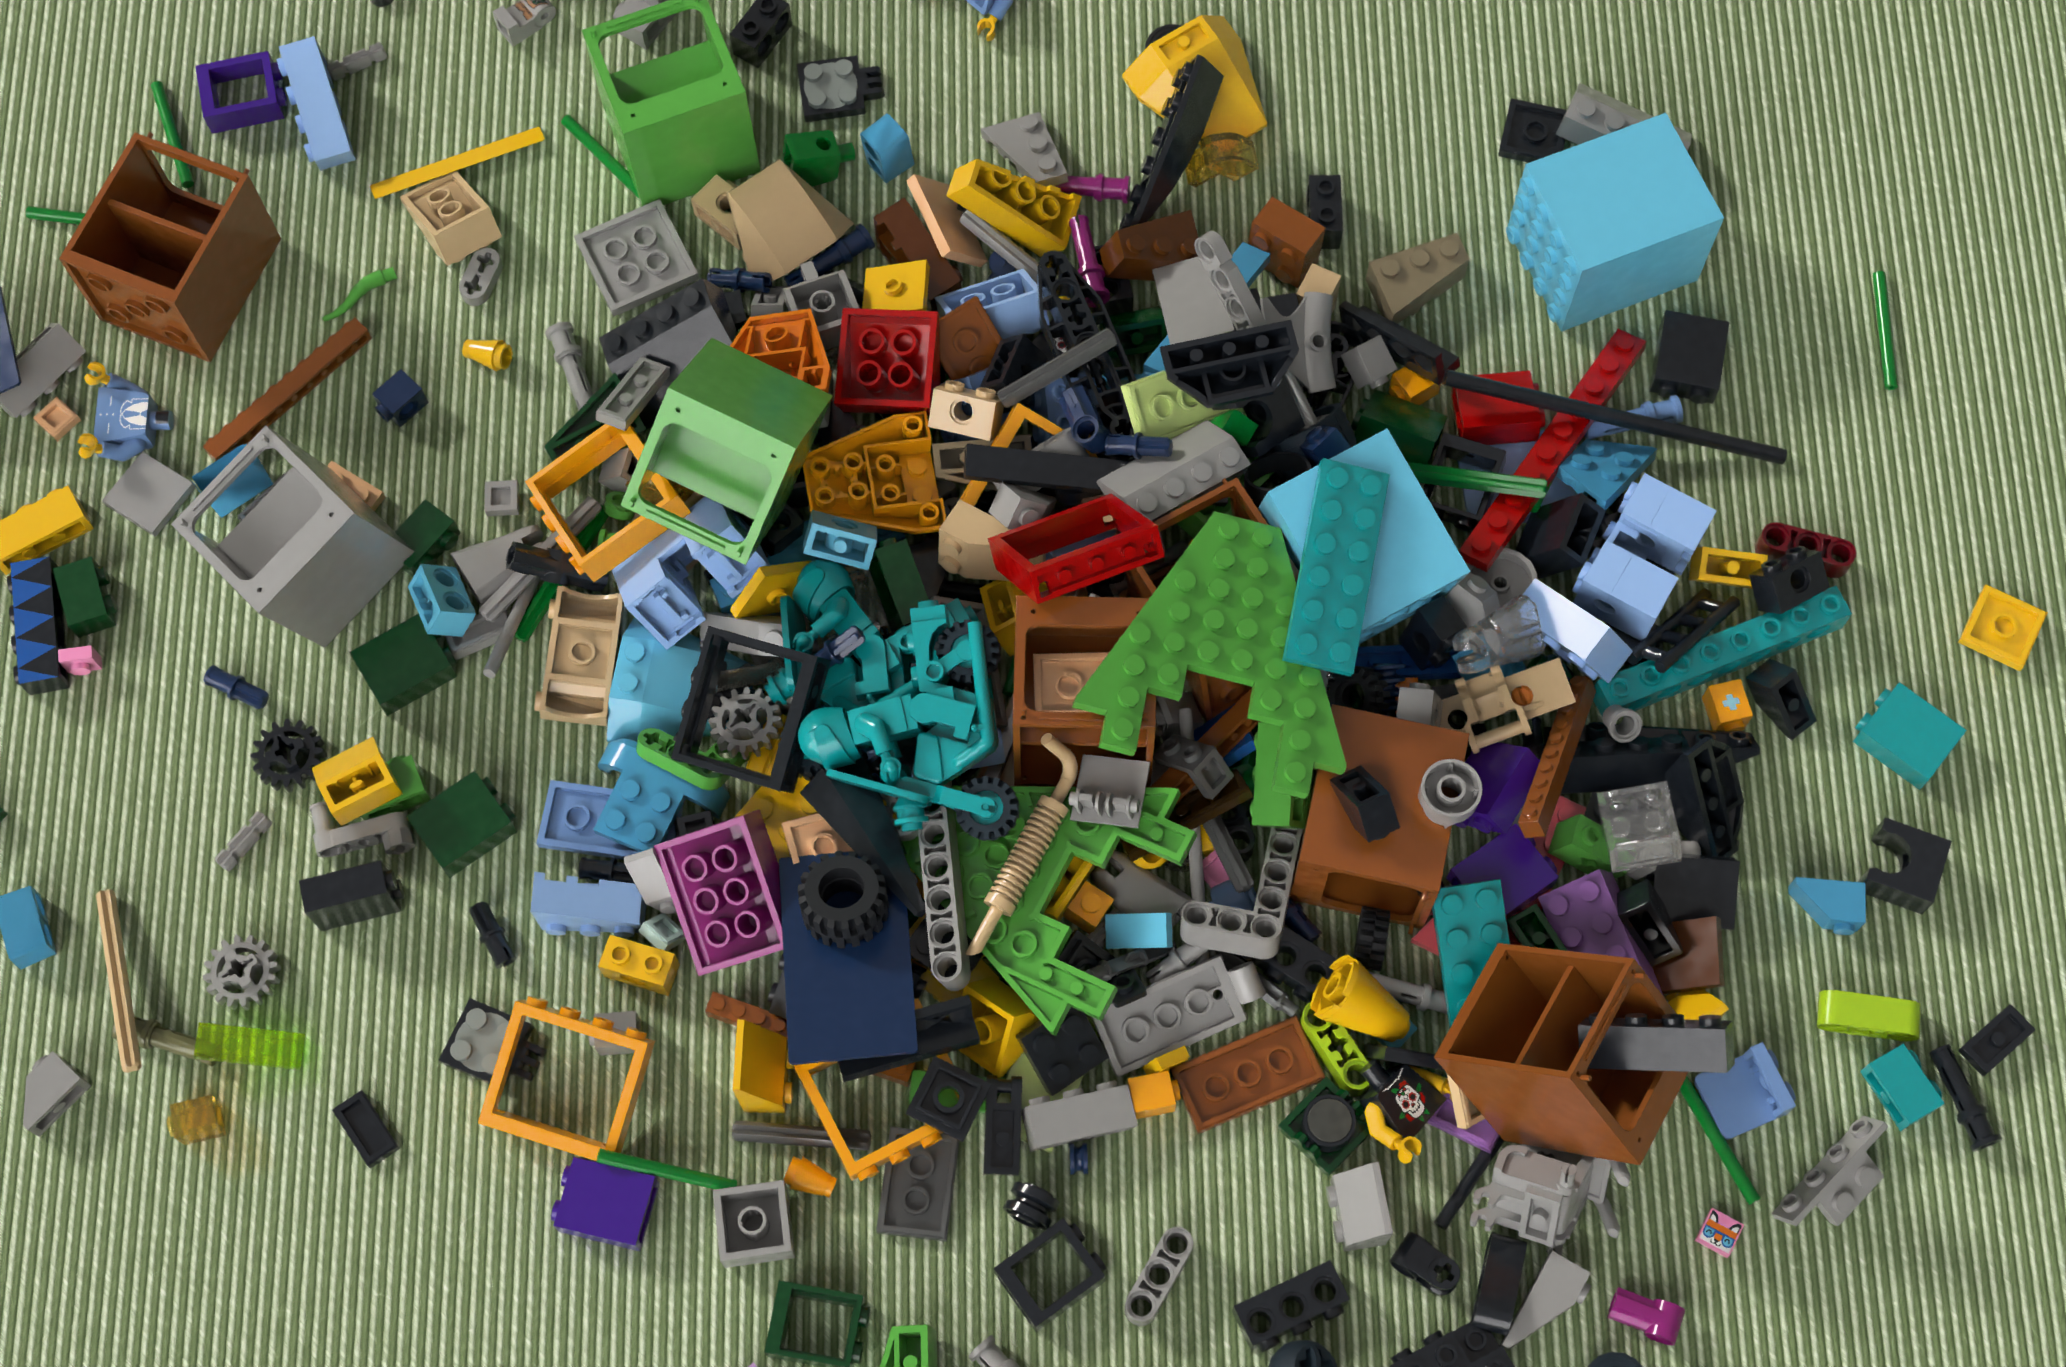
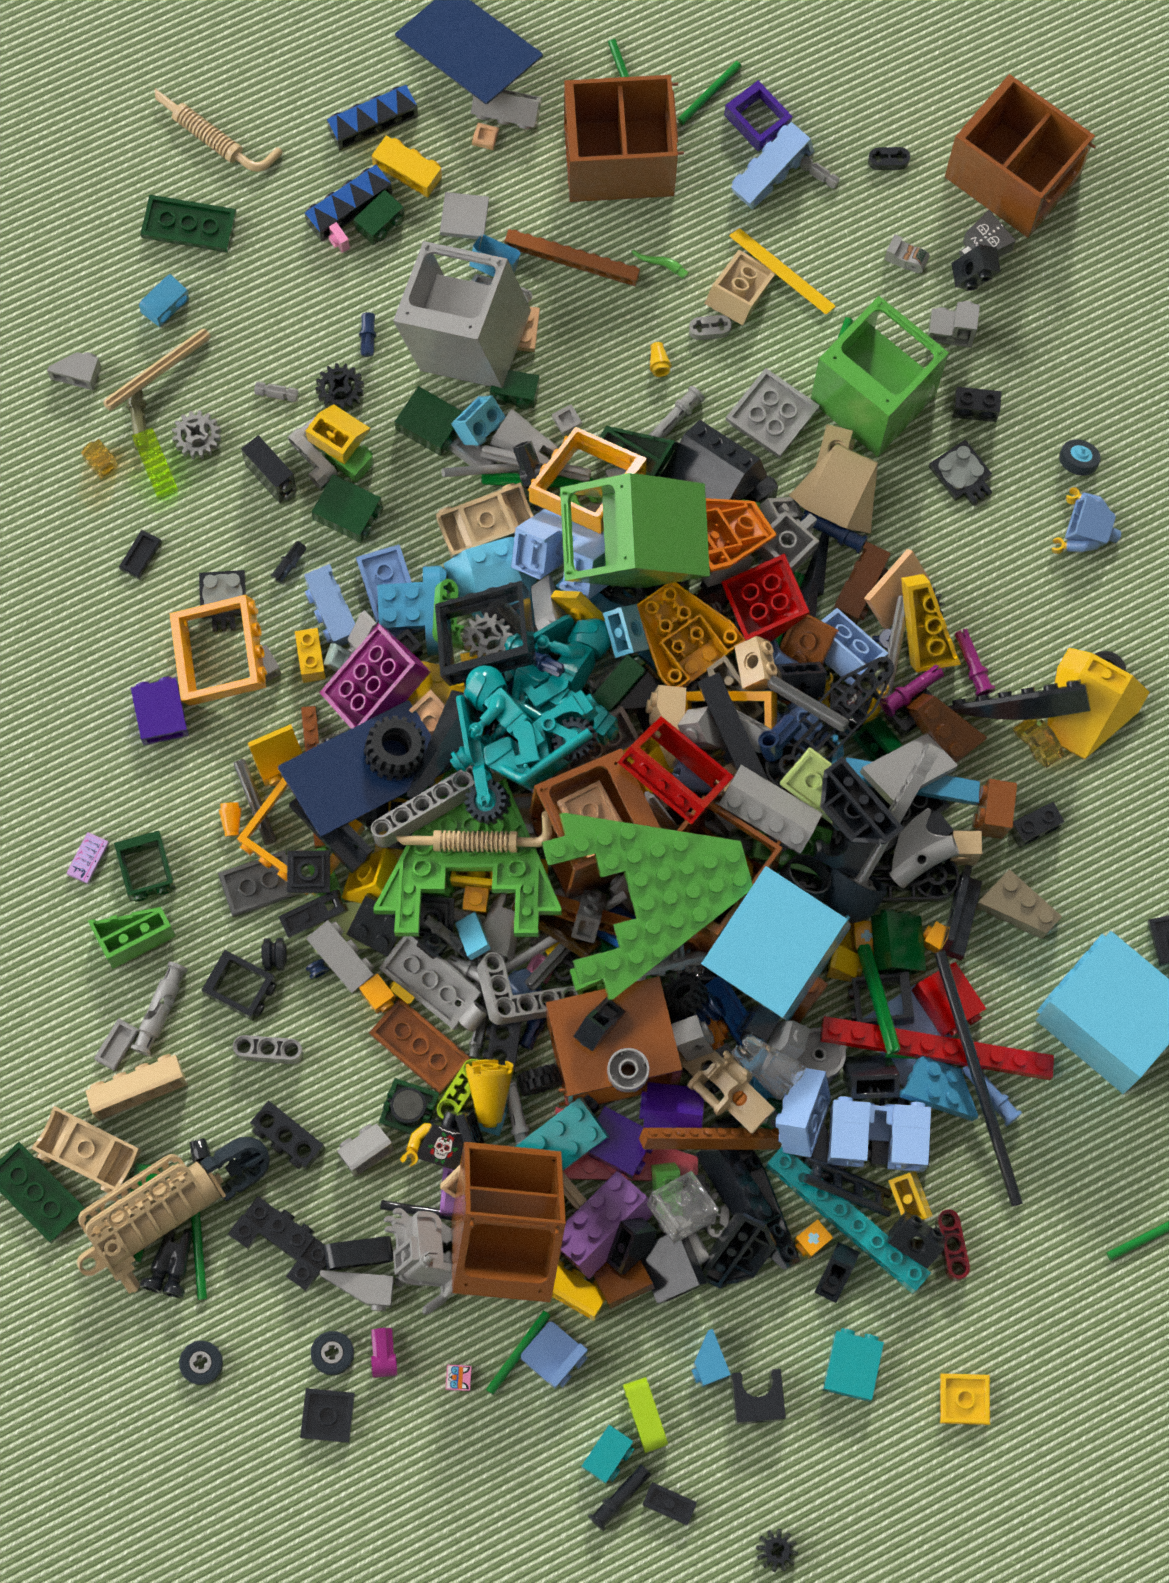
camera: 60 degrees right, 5 degrees up
(124, 418) = (501, 175): medium blue torso -> none
(399, 398) = (600, 324): dark blue brick -> none
(603, 870) = (358, 601): black axle -> none
(632, 393) = (664, 458): light grey tile -> none
(664, 1170) = (193, 733): green piece -> none
(740, 279) = (788, 483): dark blue pin -> none
(753, 1224) = (186, 800): light grey brick -> none
(816, 155) = (898, 485): green torso -> none
(887, 148) = (928, 525): dark azure piece -> none
(897, 286) = (823, 581): yellow plate -> none
(1029, 148) = (981, 615): light grey wing -> none
(1109, 791) = (535, 875): light grey hinge -> none
(1138, 445) = (776, 777): dark blue axle -> none
(1236, 425) = (826, 833): green slope -> none
(1323, 443) = (841, 897): dark blue brick -> none
(1336, 567) = (737, 931): teal plate -> none
(1369, 363) = (934, 902): light grey brick -> none
(1422, 1262) = (351, 1202): black piece -> none
(1534, 930) = (585, 1183): dark green brick -> none
(1627, 729) = (754, 1175): light grey piece -> none
(1663, 1043) = (528, 1270): brick -> none
(1689, 357) = (1055, 1110): black brick -> none
(1838, 1179) = (526, 1438): light grey bracket -> none

